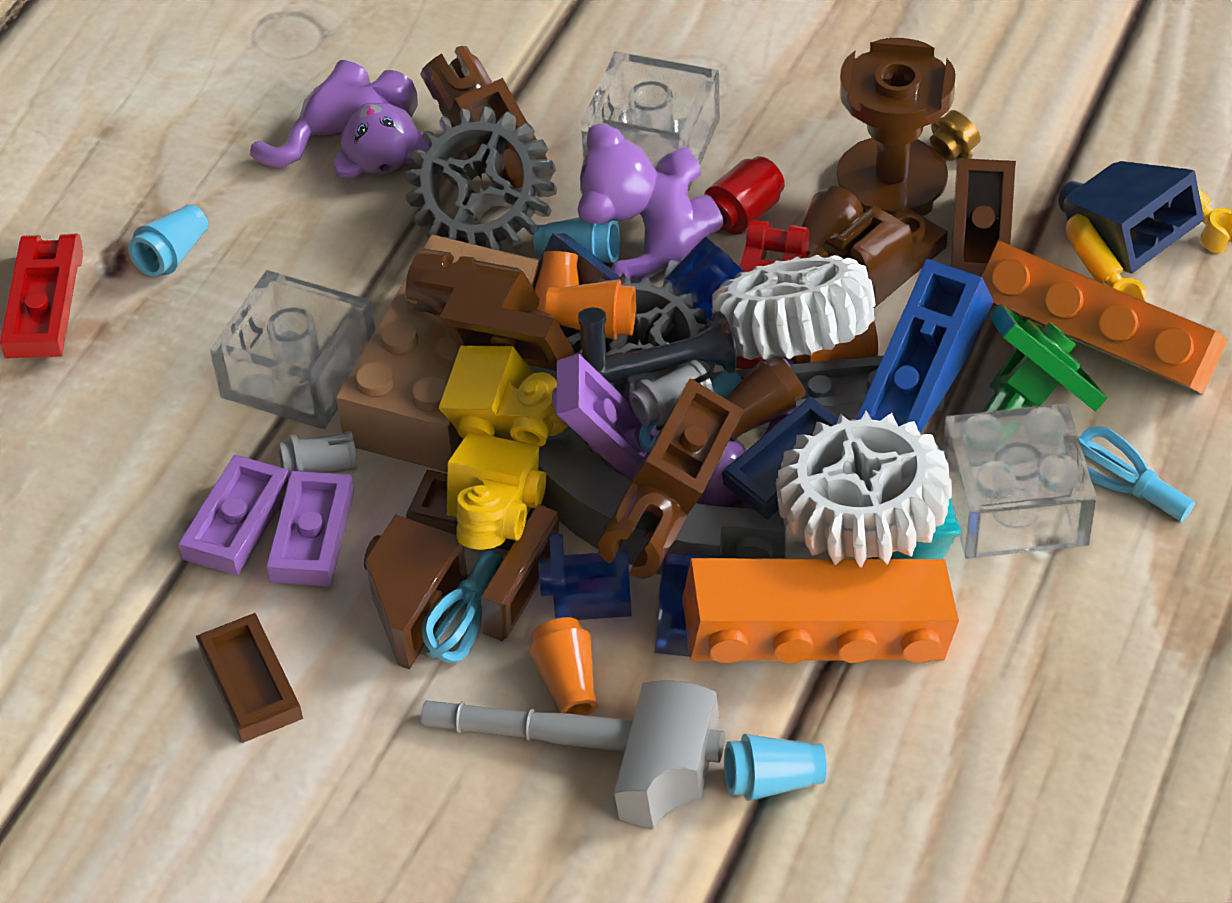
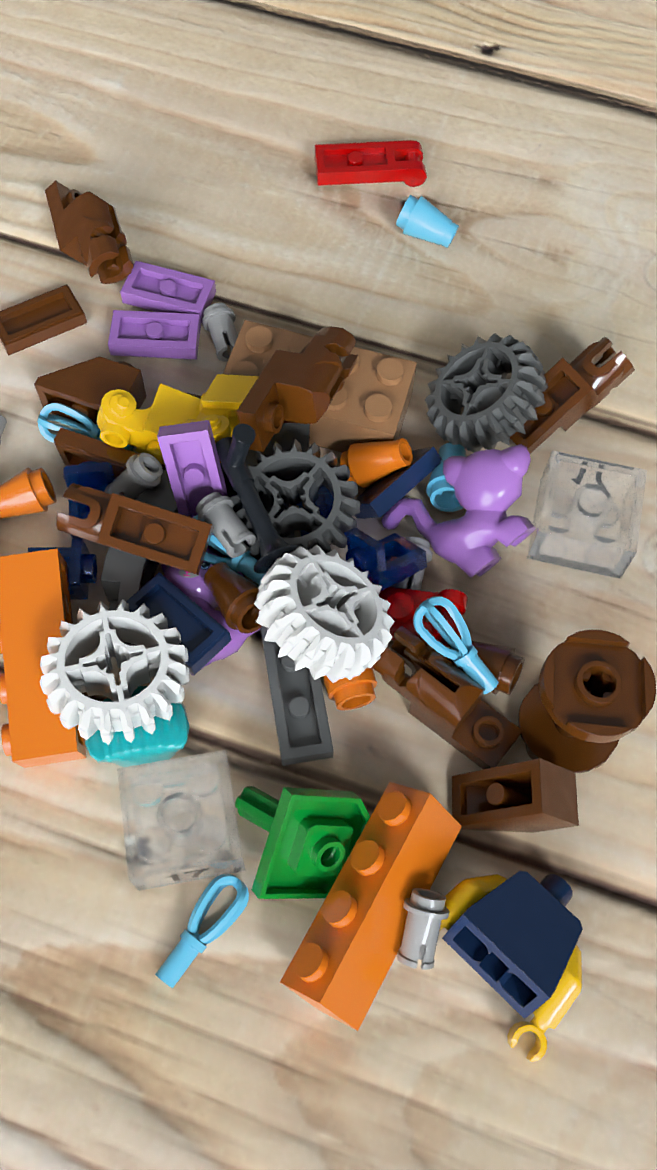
camera: 80 degrees right, 15 degrees up
(117, 586) = (89, 232): none -> reddish brown plate
(292, 348) = (308, 289): clear brick -> none
(369, 116) = (549, 329): medium lavender animal -> none
(576, 513) = (141, 473): none -> light grey pin
(611, 296) = (290, 457): orange cone -> none
(746, 192) = (516, 595): red brick -> none
(833, 219) = (463, 652): none -> medium azure piece
(928, 344) = (309, 735): blue slope -> none
(954, 136) = (622, 777): pearl gold plate -> none
(1128, 273) = (422, 927): none -> light grey pin

